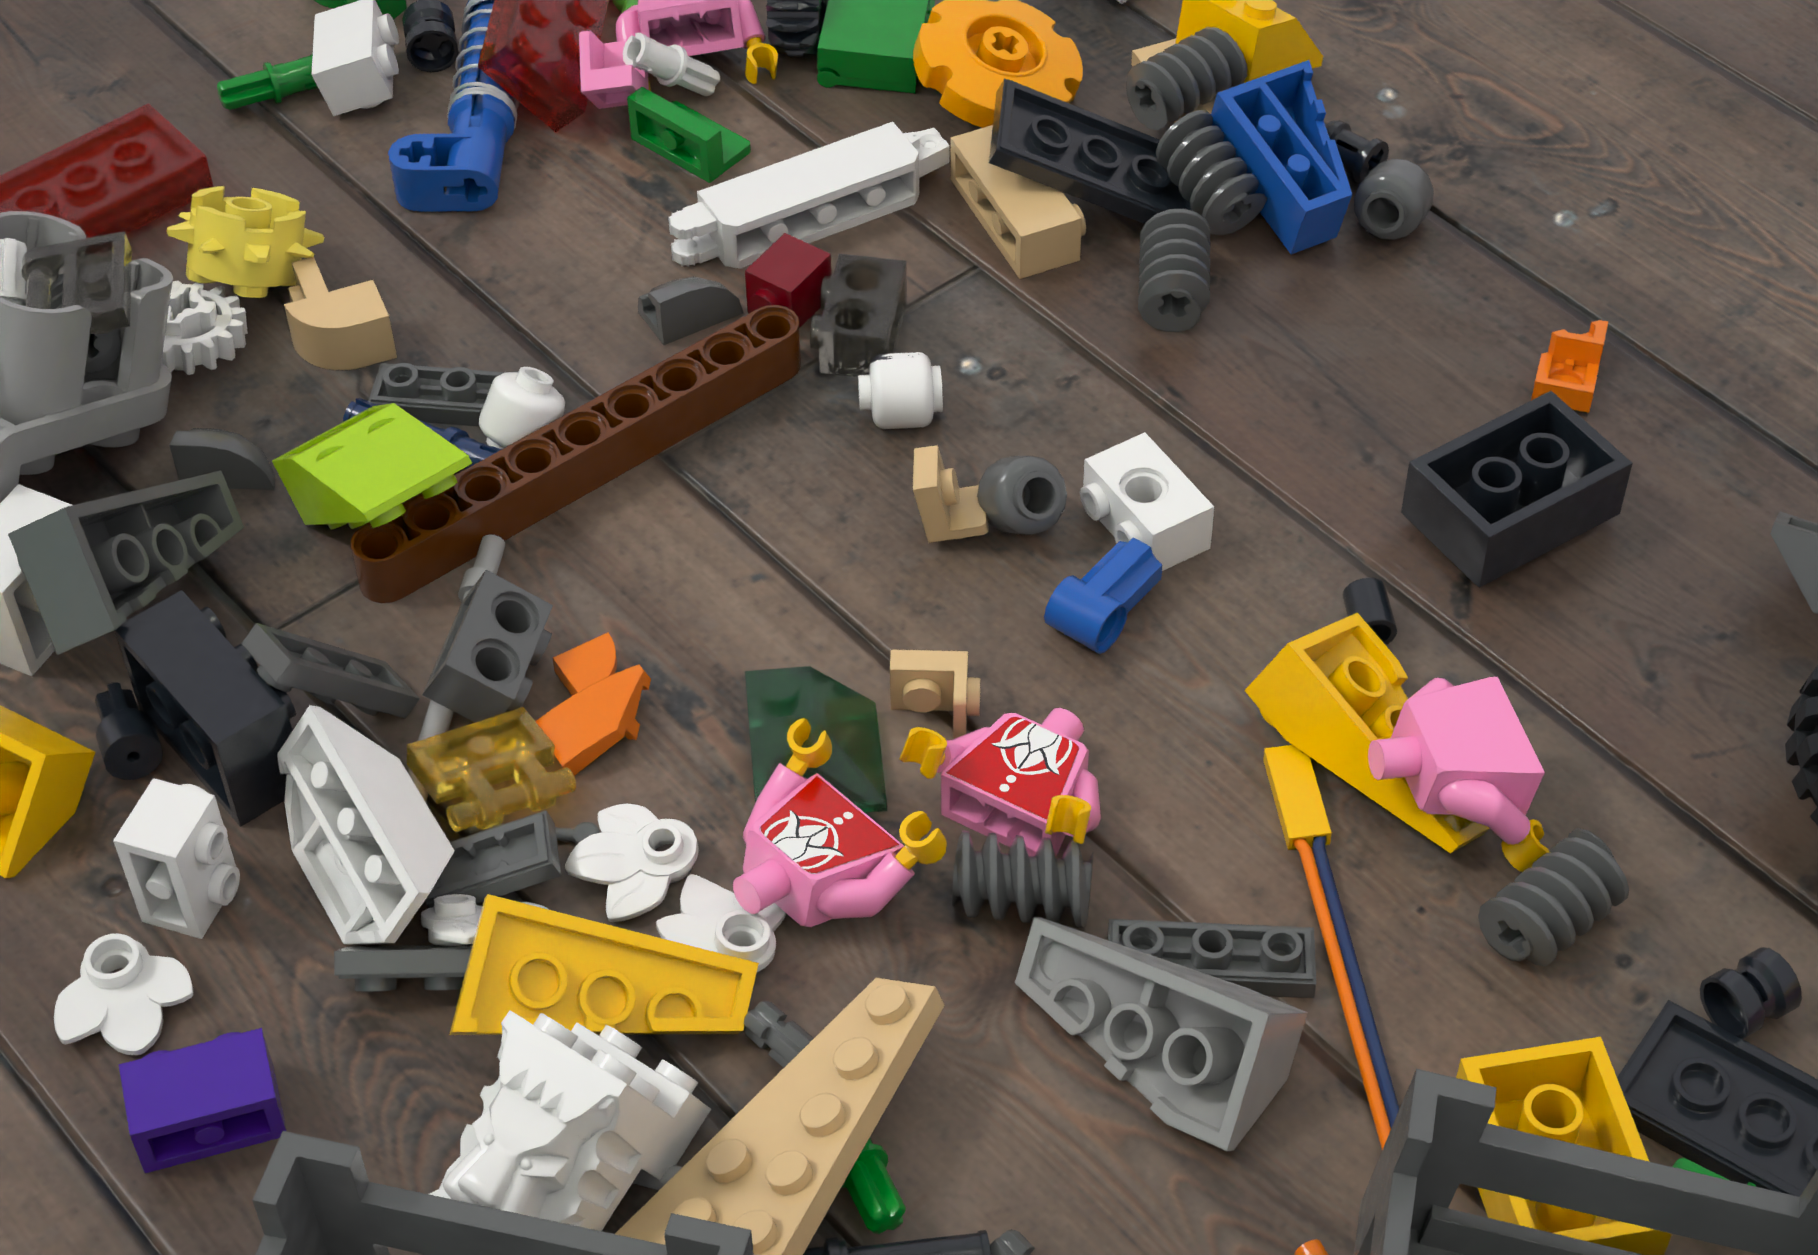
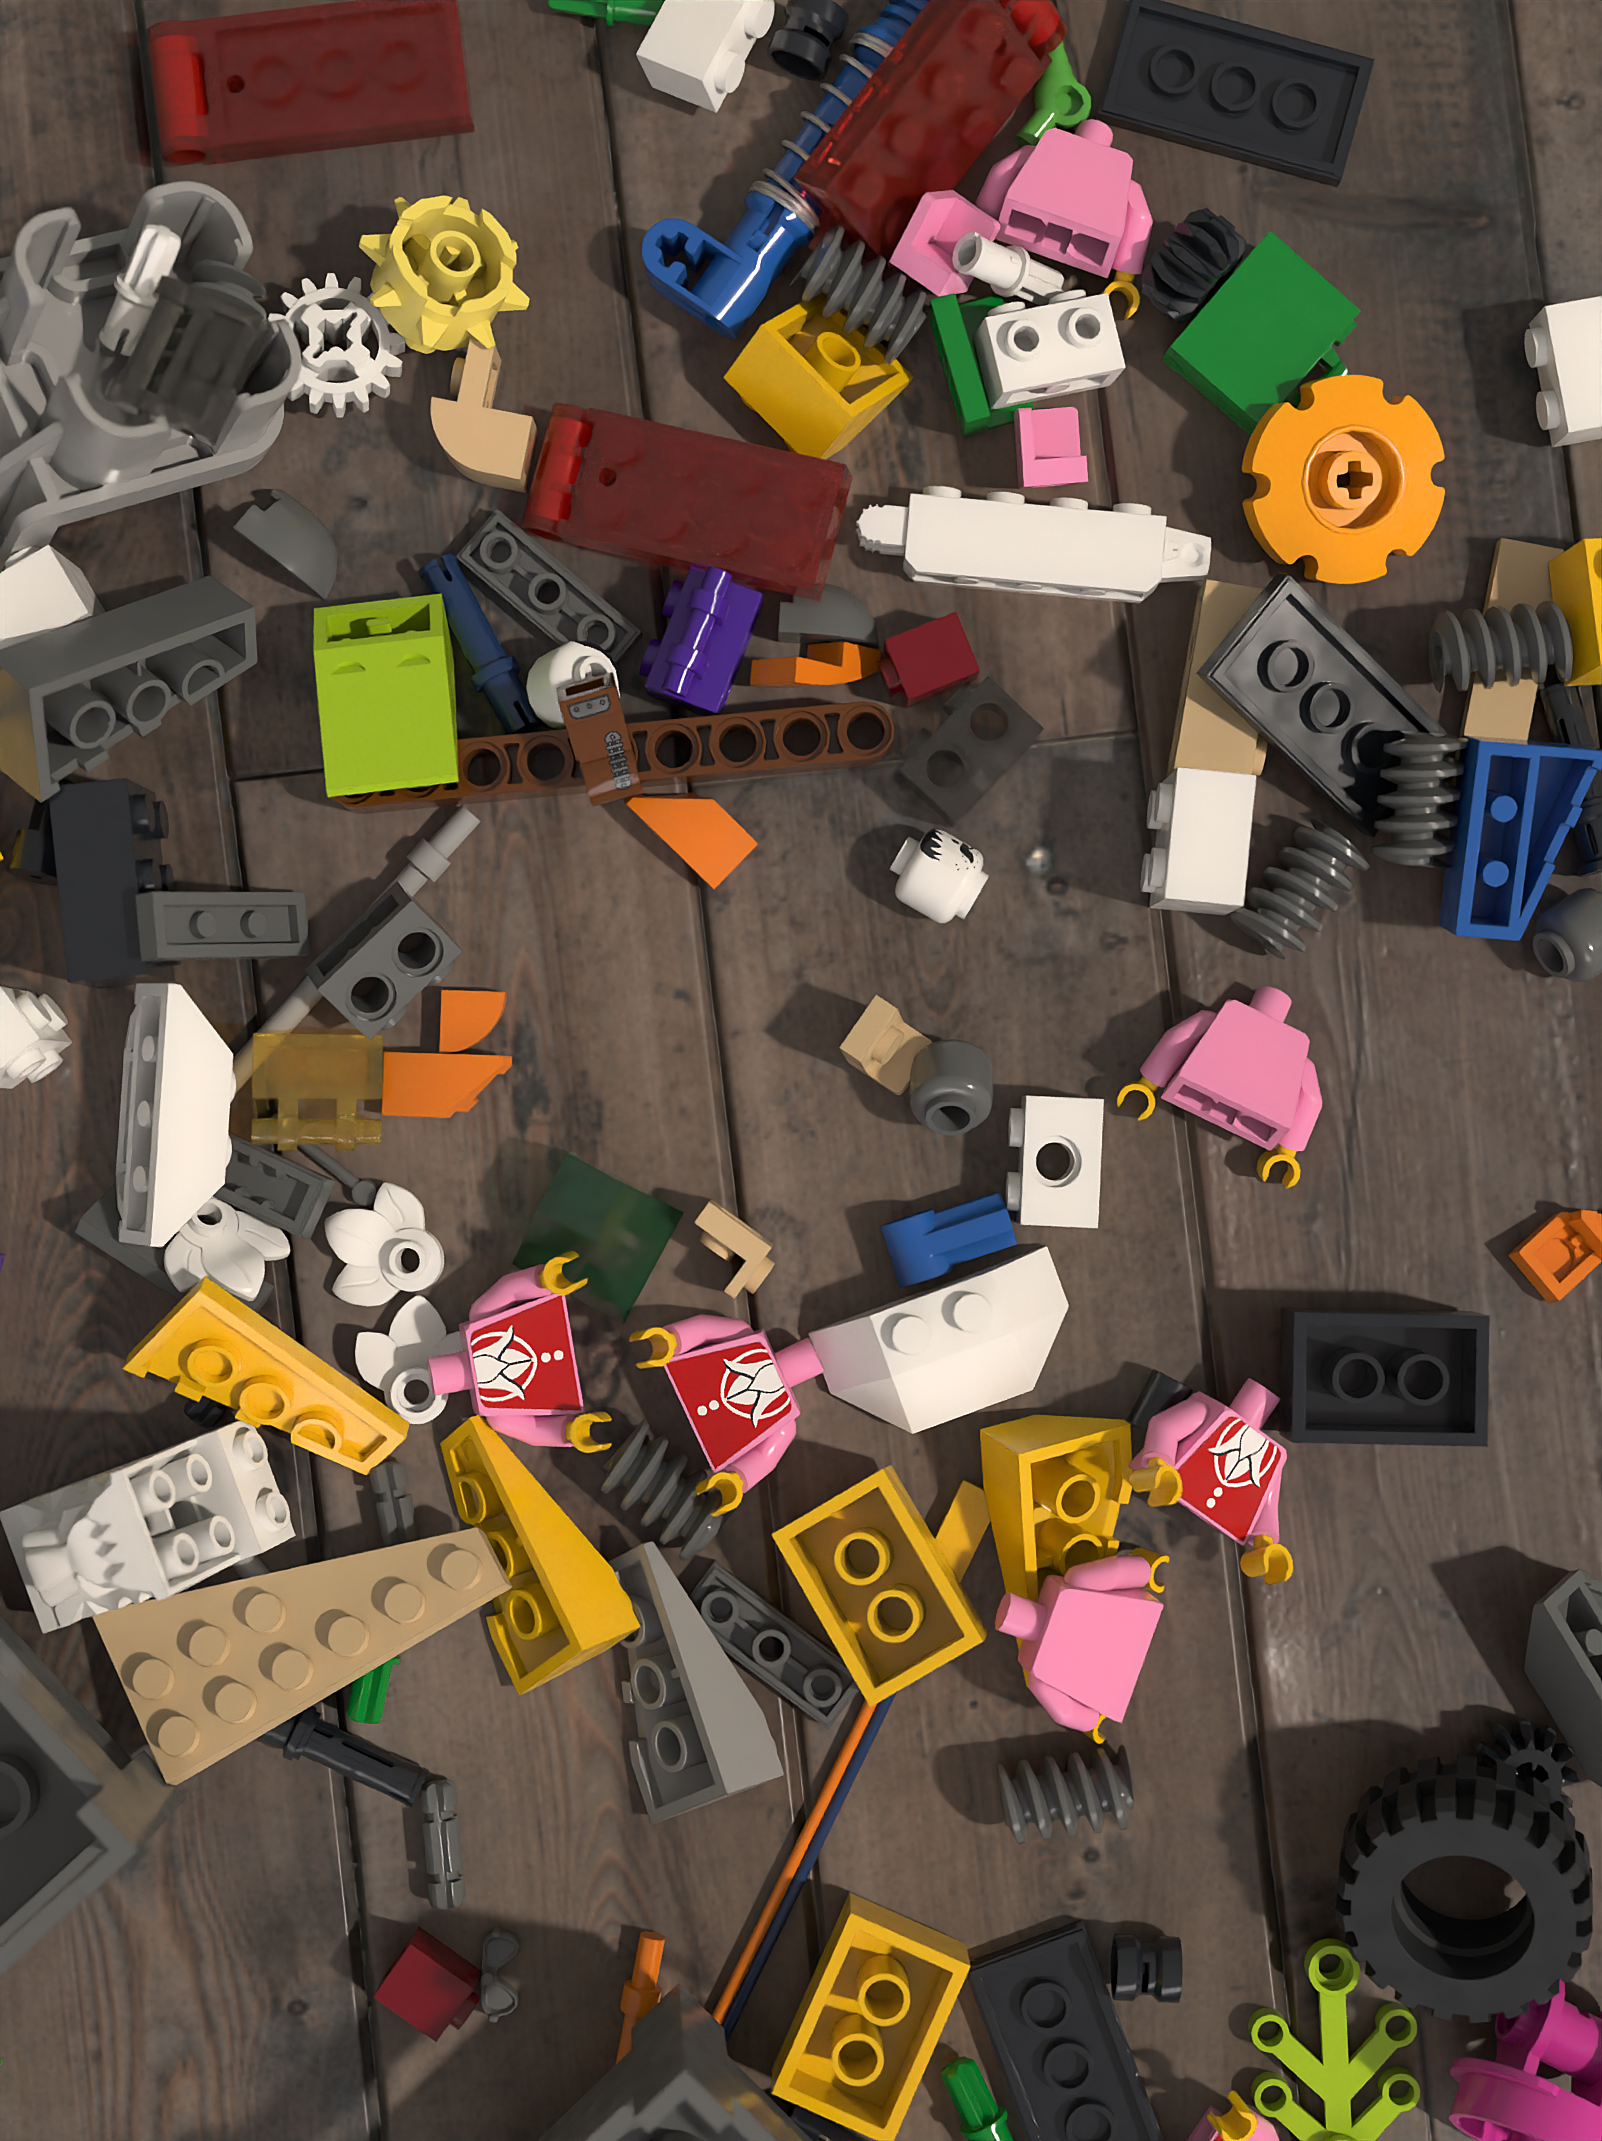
camera: 35 degrees right, 40 degrees up
(528, 275) = (687, 499): none -> clear red hinge
(568, 396) = (600, 738): none -> reddish brown leg
(573, 185) = (815, 378): none -> yellow slope
(574, 120) = (862, 293): none -> dark grey piece
(599, 337) = (702, 642): none -> dark purple brick
(687, 459) = (696, 832): none -> orange slope
(694, 321) = (824, 665): none -> orange slope
(738, 92) = (1048, 349): none -> white brick
(774, 142) = (1048, 448): none -> bright pink panel
(1001, 1015) = (563, 1591): none -> yellow wedge
(1078, 263) = (1200, 841): none -> white brick
(1160, 664) = (948, 1344): none -> white wedge
(1236, 377) = (1241, 1074): none -> bright pink torso
(1261, 823) = (880, 1585): none -> yellow brick
(1457, 611) = (1221, 1472): none -> torso

